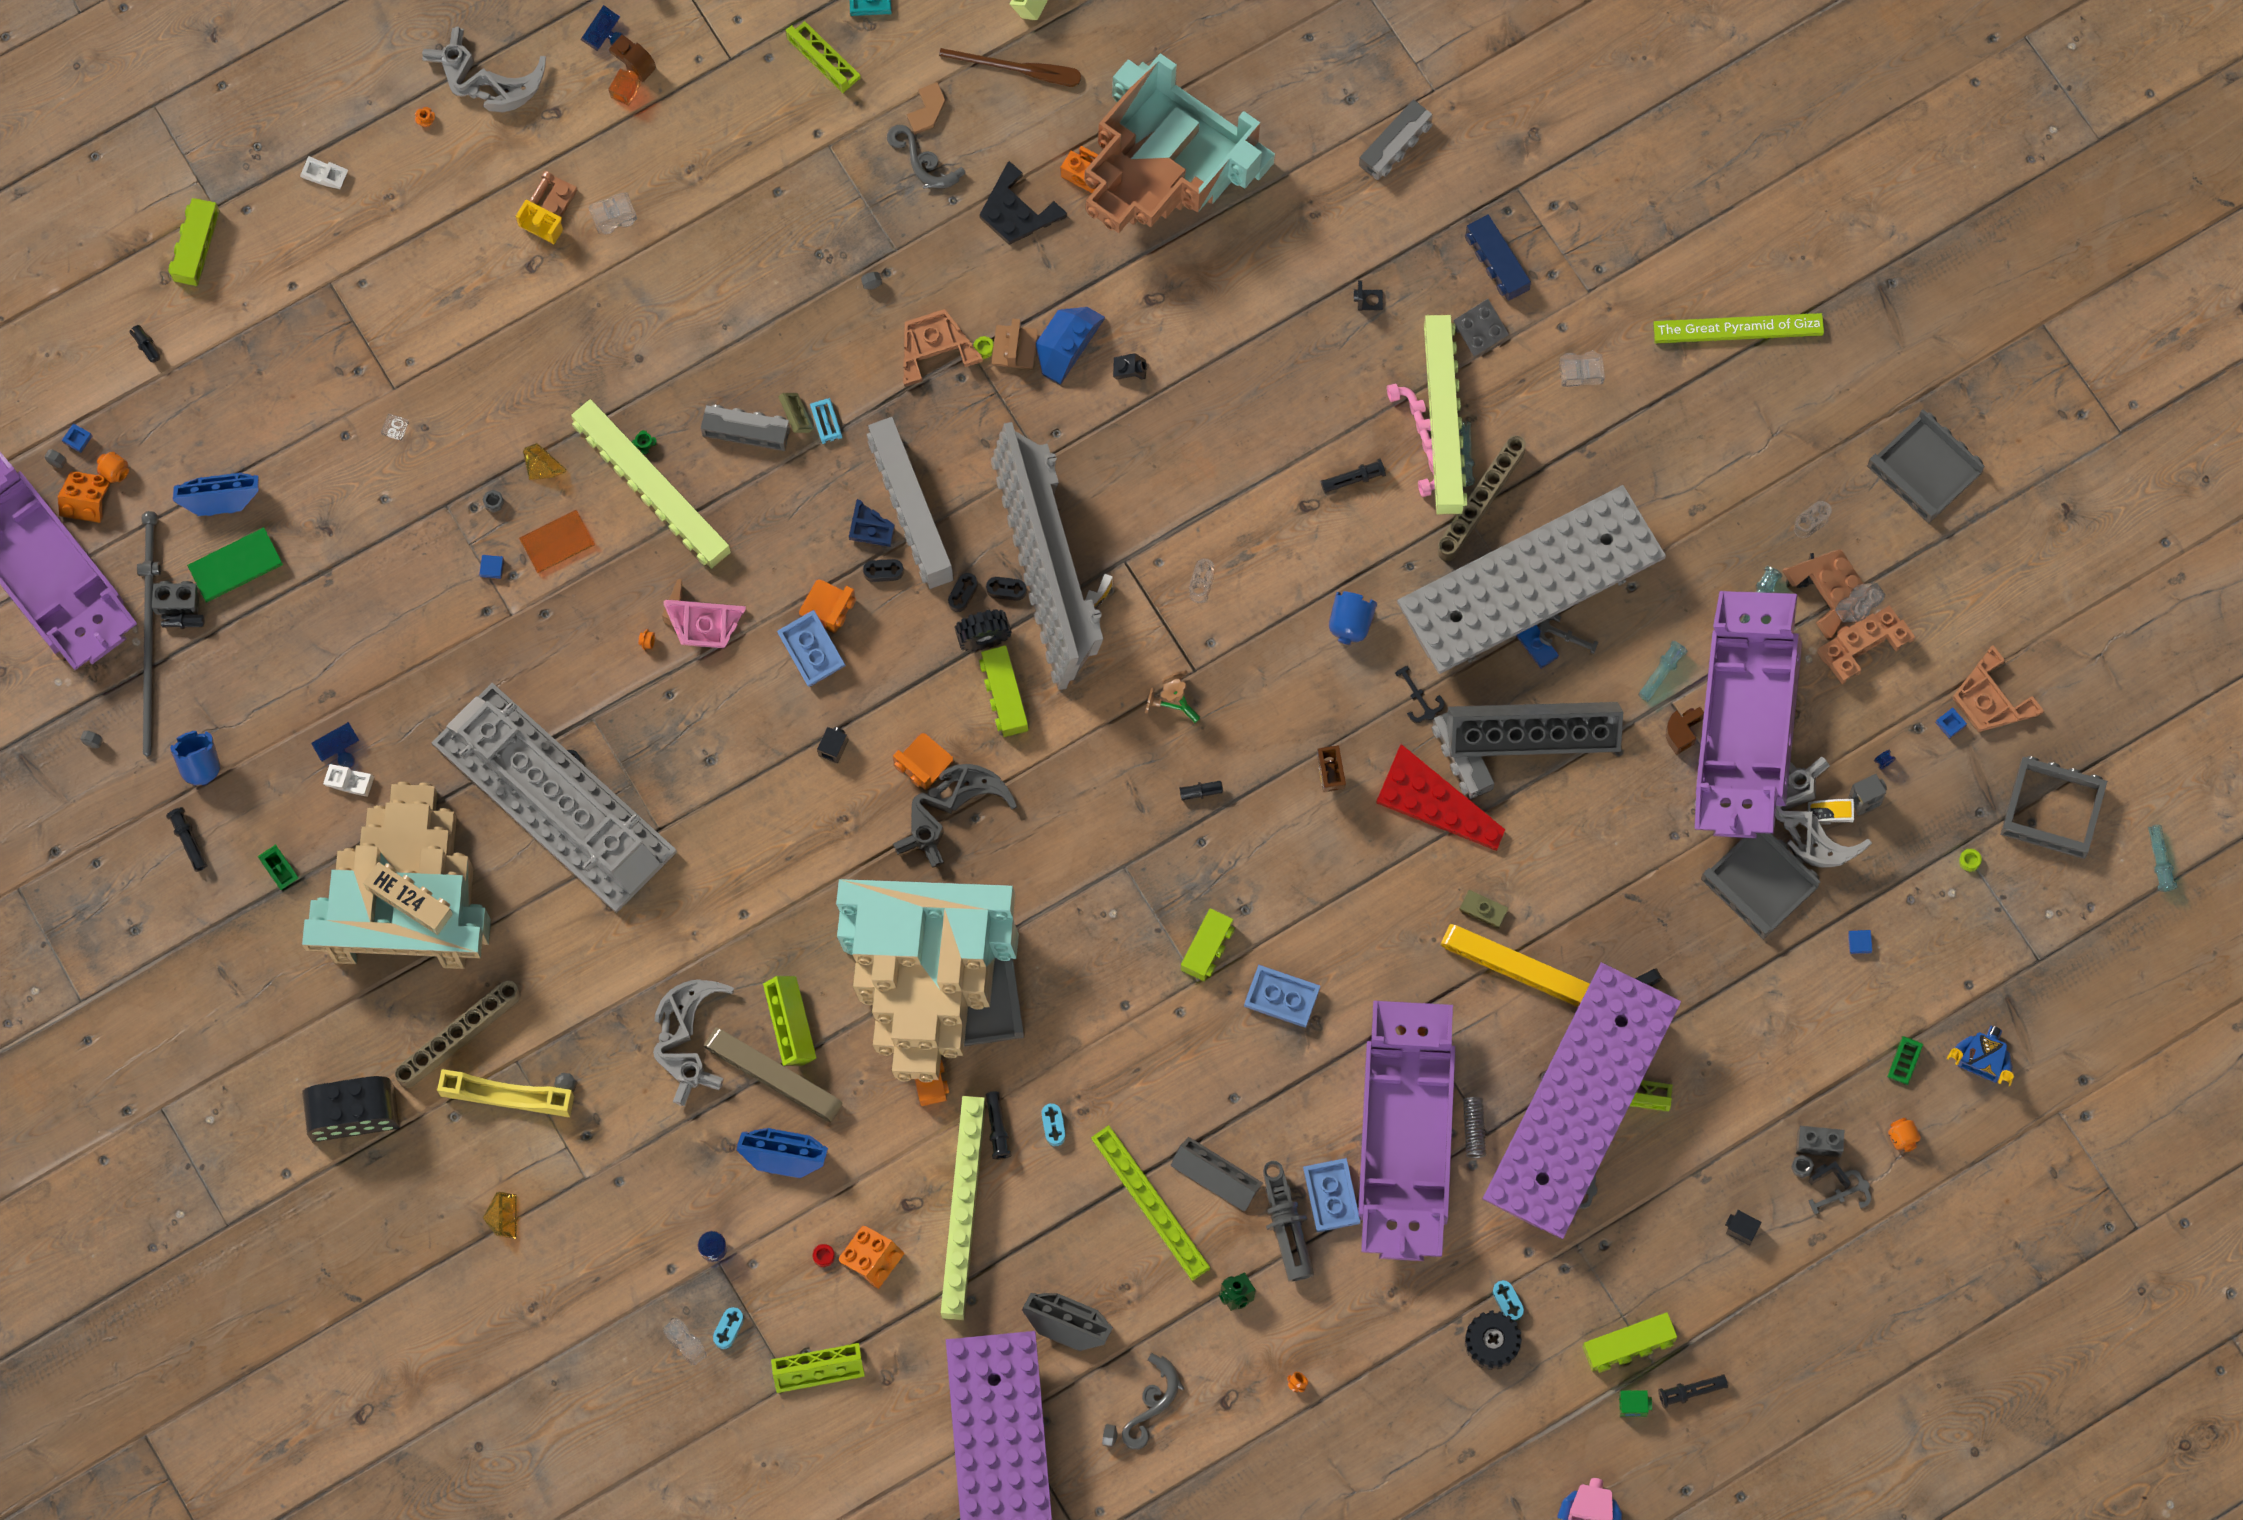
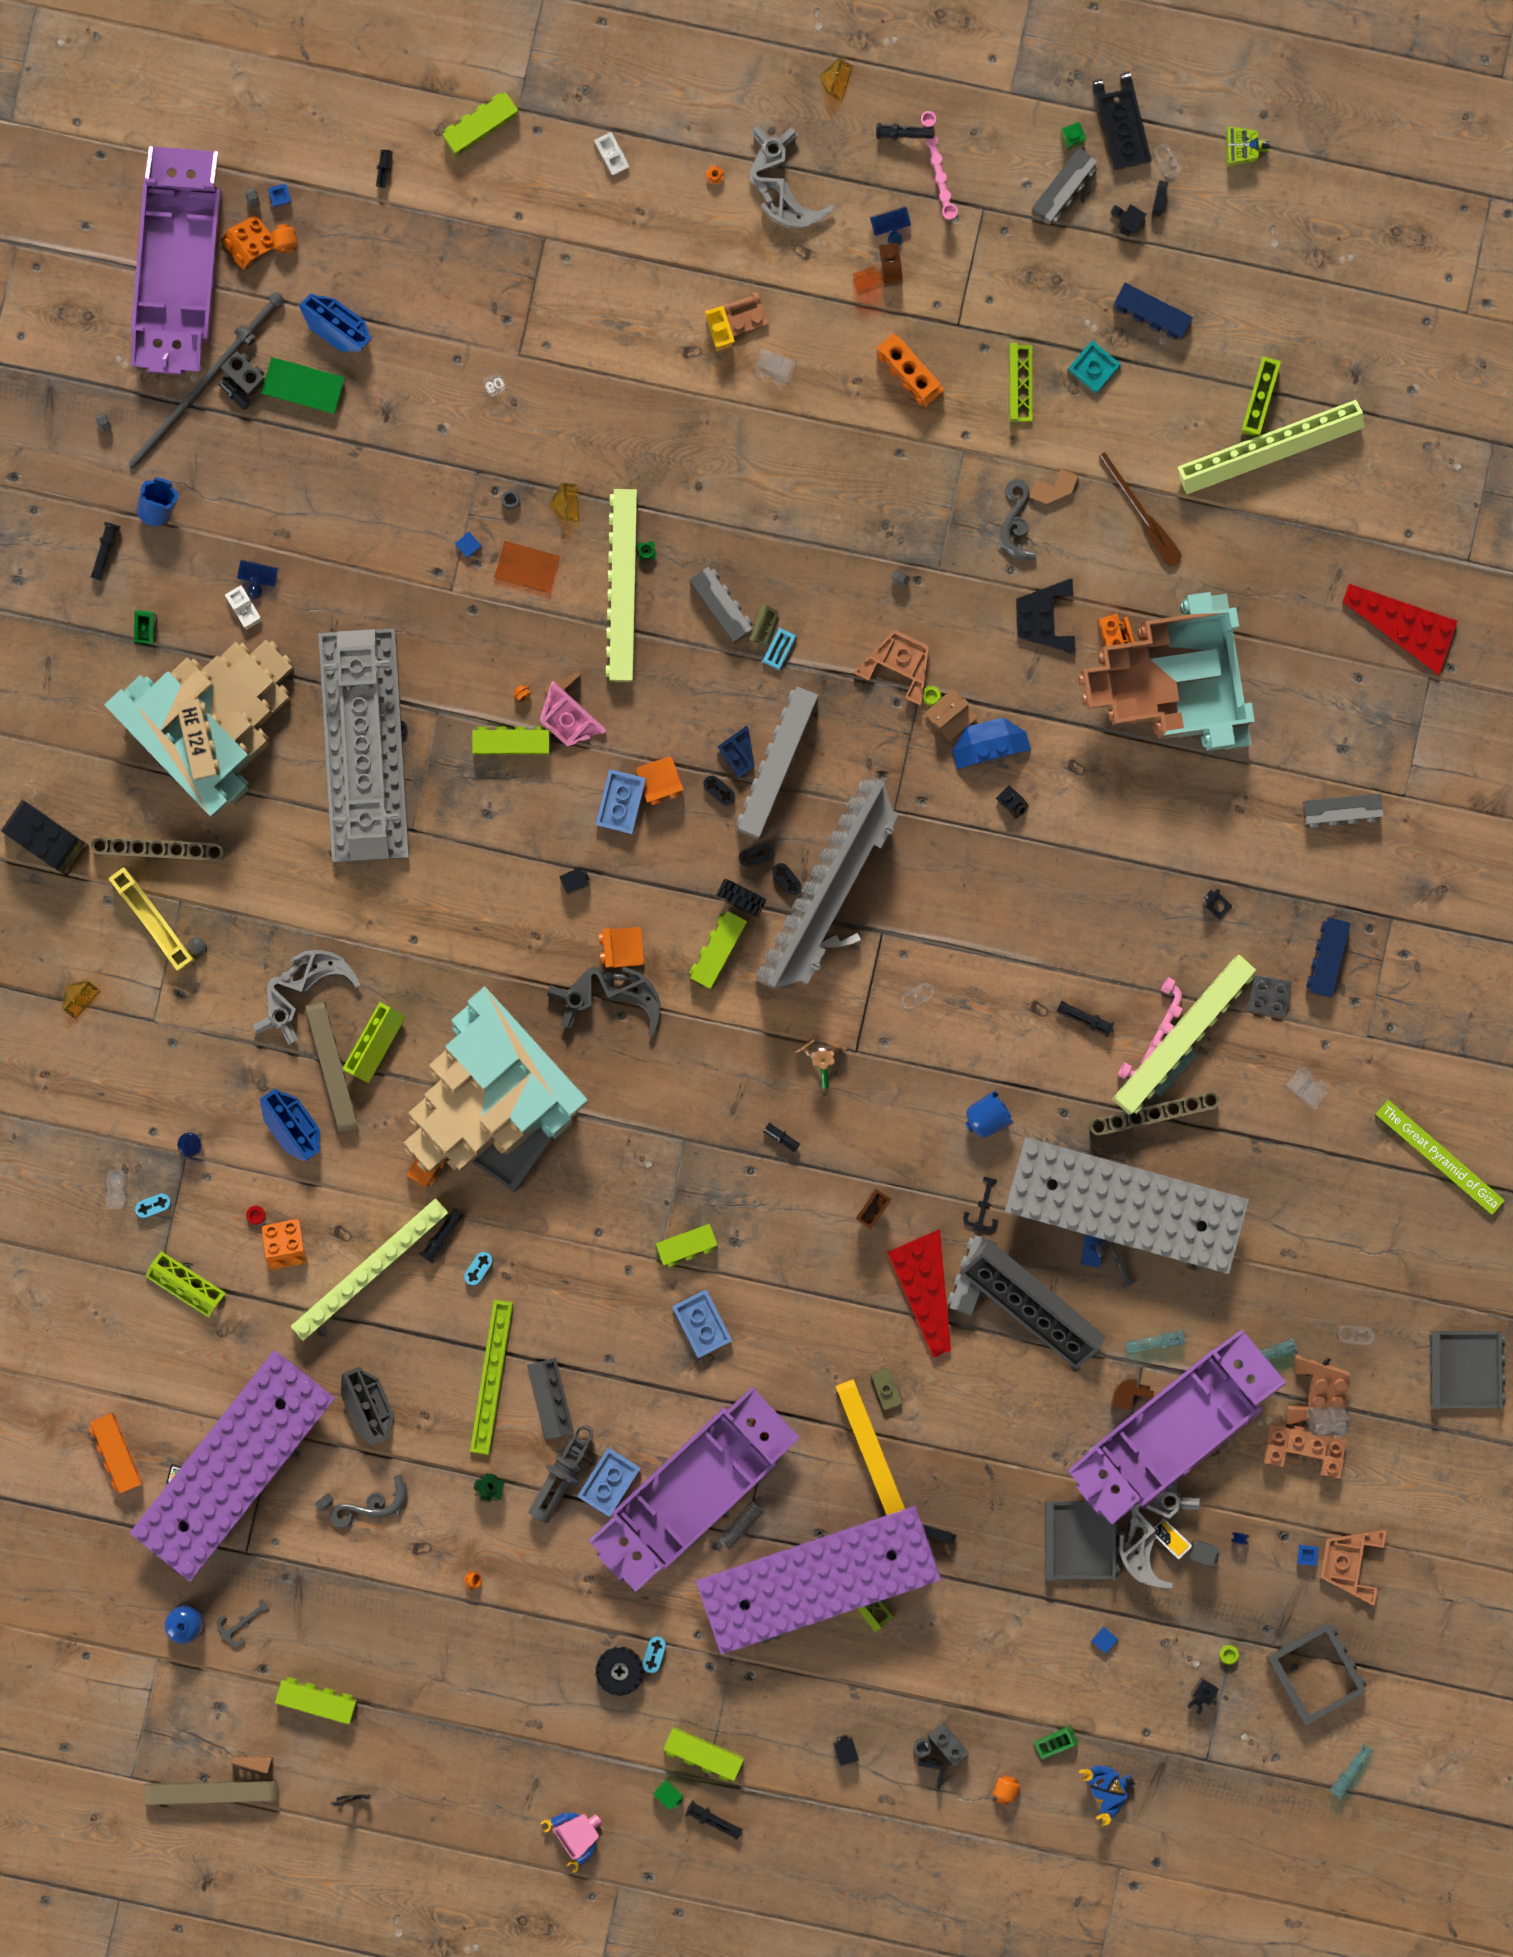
camera: 40 degrees right, 15 degrees up
(674, 684) = (511, 741): none -> lime brick
(725, 120) = (908, 359): none -> orange brick
(1862, 1186) = (949, 1795): dark grey piece -> none
(1982, 907) = (1204, 1692): none -> black brick

